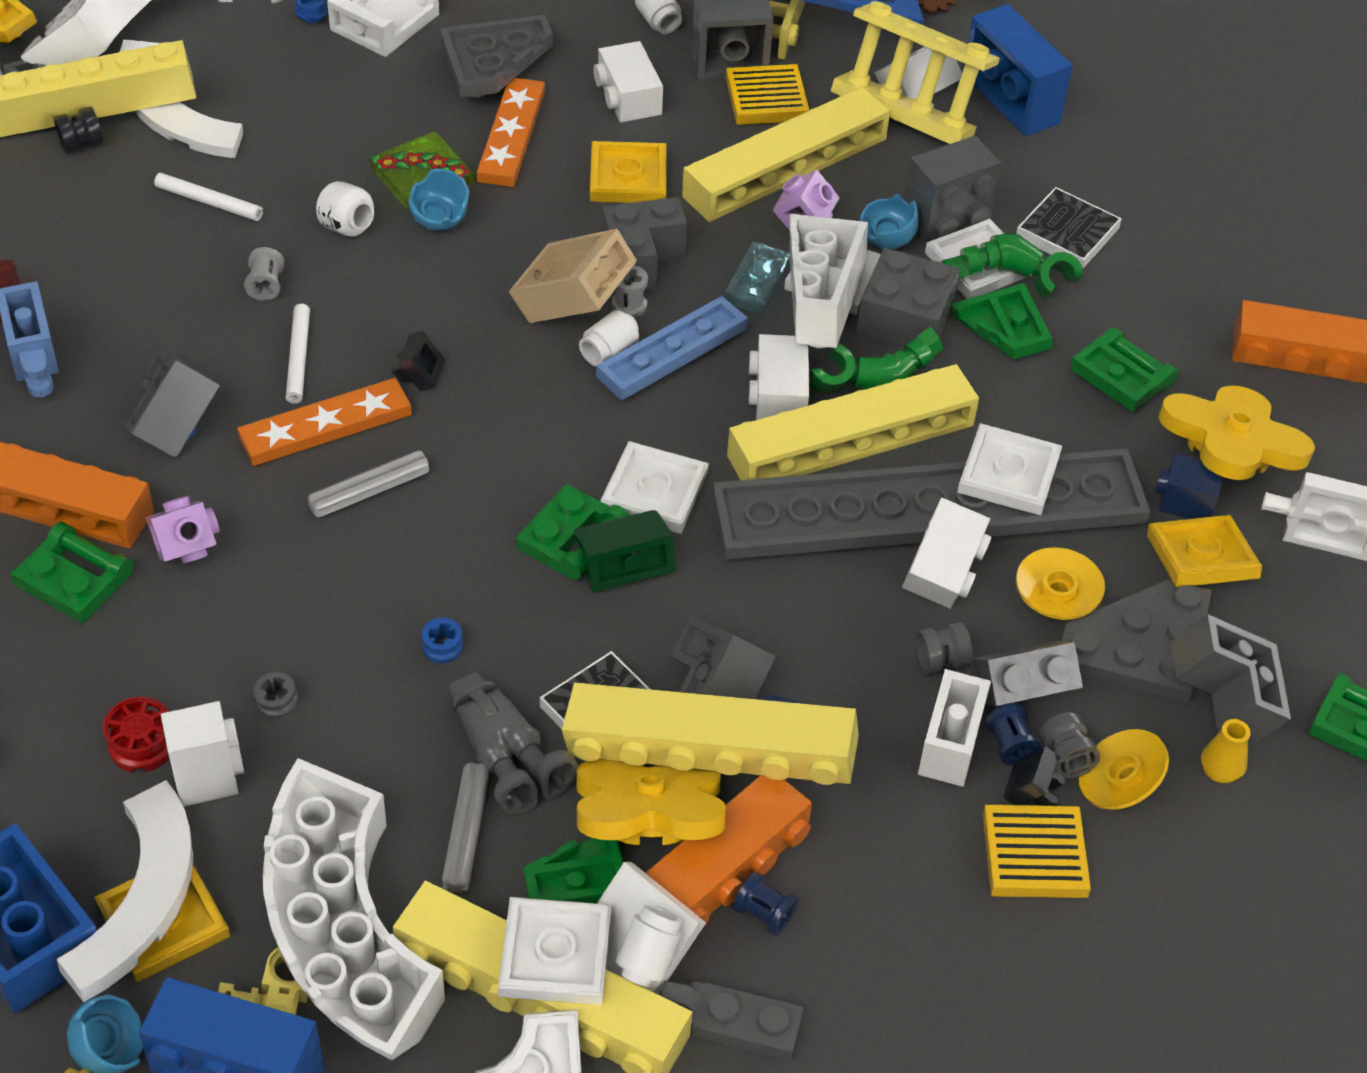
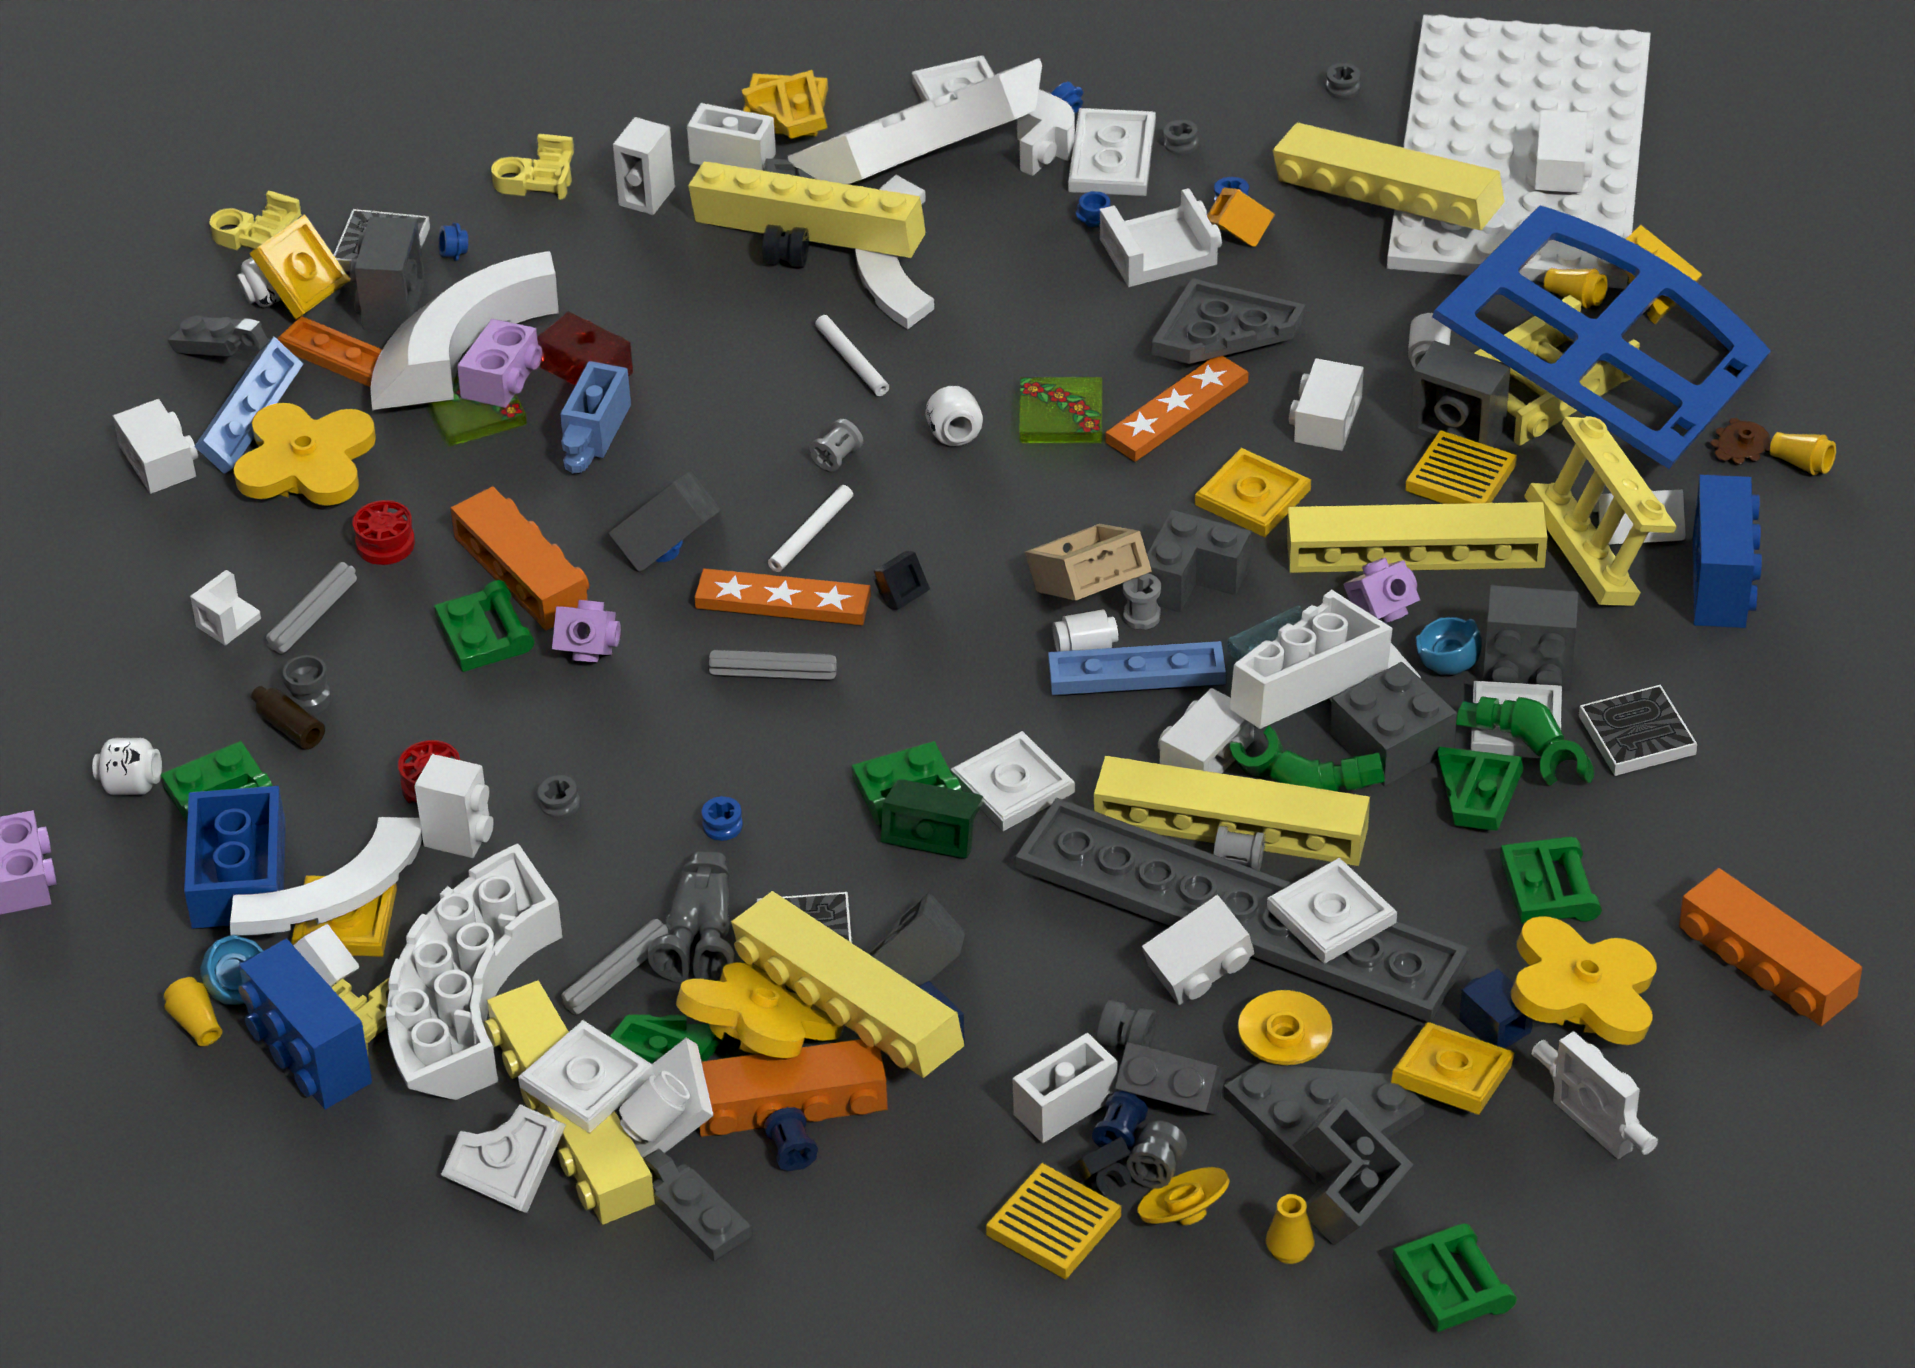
camera: 40 degrees right, 5 degrees down
(184, 964) = (327, 955): none -> white panel
(439, 200) = (1041, 444): dark azure hair -> none
(887, 453) = (1240, 847): none -> light grey bush

